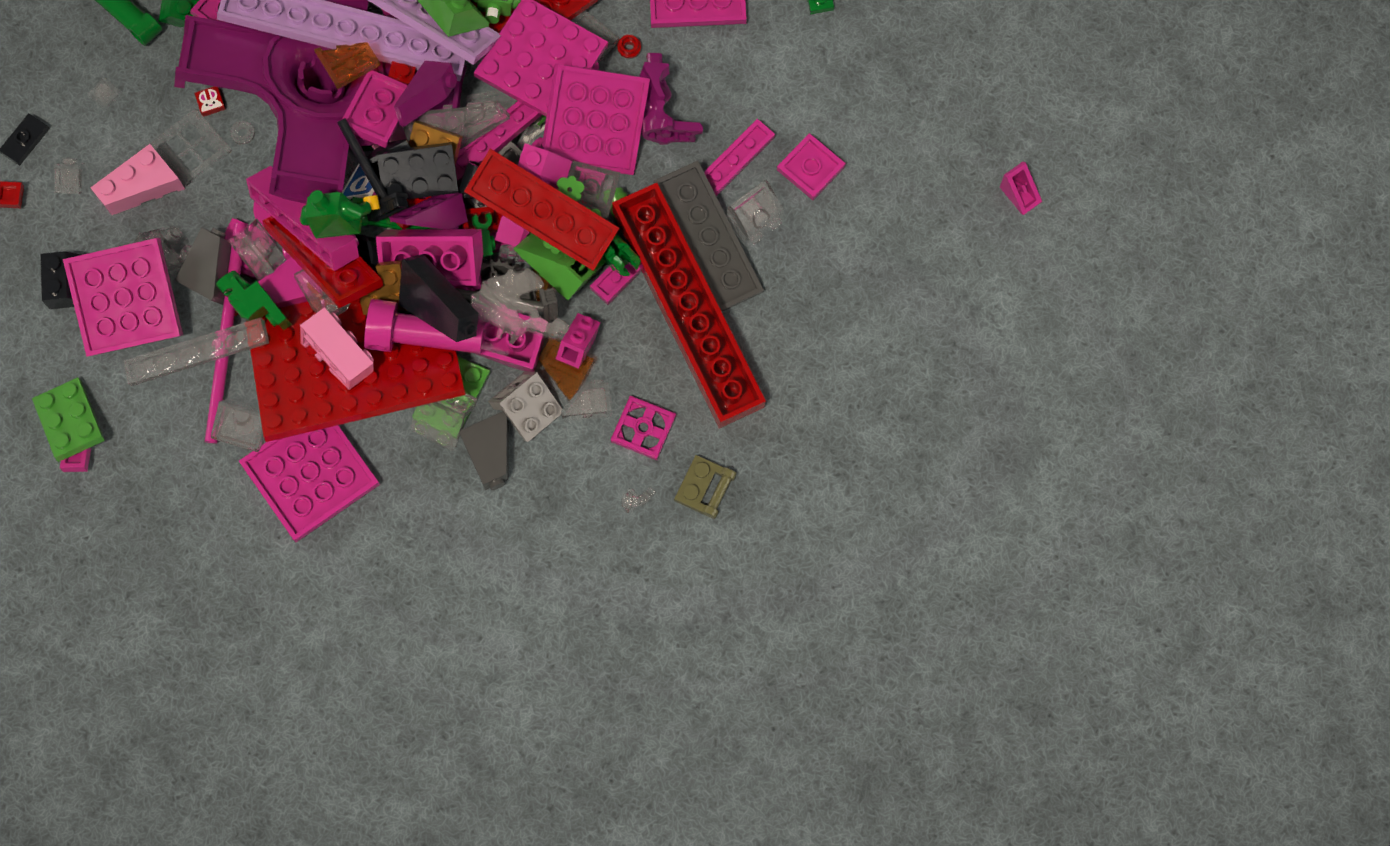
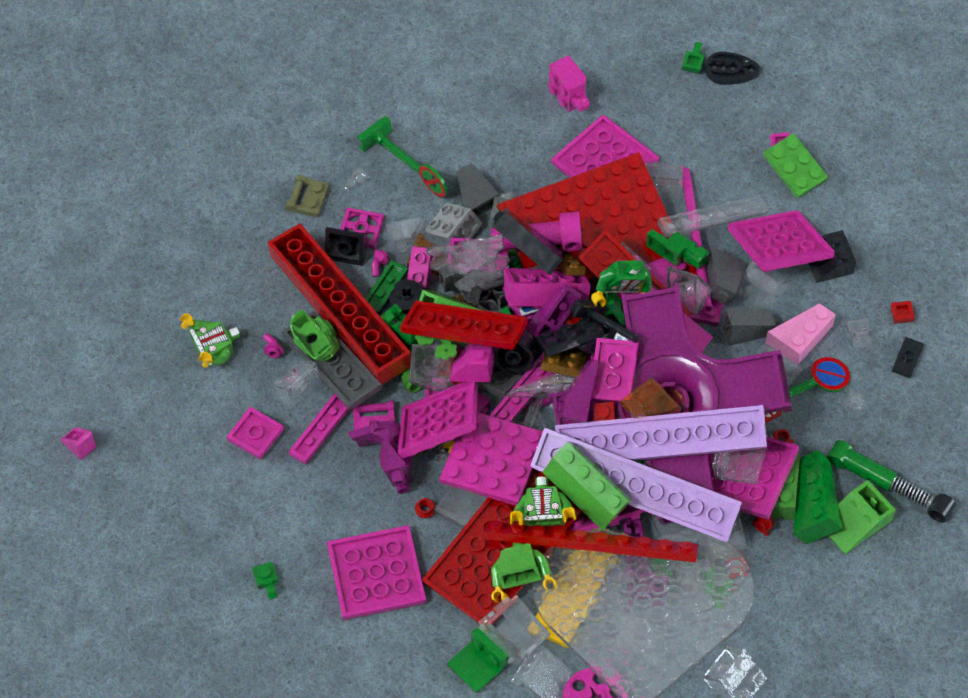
camera: 170 degrees right, 15 degrees down
(102, 606) = (728, 77): none -> black piece
(125, 130) = (825, 373): none -> piece
(148, 610) = (694, 60): none -> green plate
(197, 199) = (747, 324): none -> dark grey slope
(326, 584) = (568, 84): none -> dark pink hinge
(336, 348) = (602, 213): bright pink wedge -> none
(598, 309) = (405, 294): none -> black piece
(598, 558) = (378, 134): none -> green piece
(626, 372) = (380, 258): none -> dark pink plate
(627, 333) = (380, 292): none -> green plate
(664, 398) = (345, 246): none -> black slope
(666, 157) = (360, 422): none -> dark pink plate
(714, 262) = (304, 326): none -> bright green piece
(775, 270) = (272, 347): none -> dark pink plate
(850, 288) = (210, 340): none -> torso

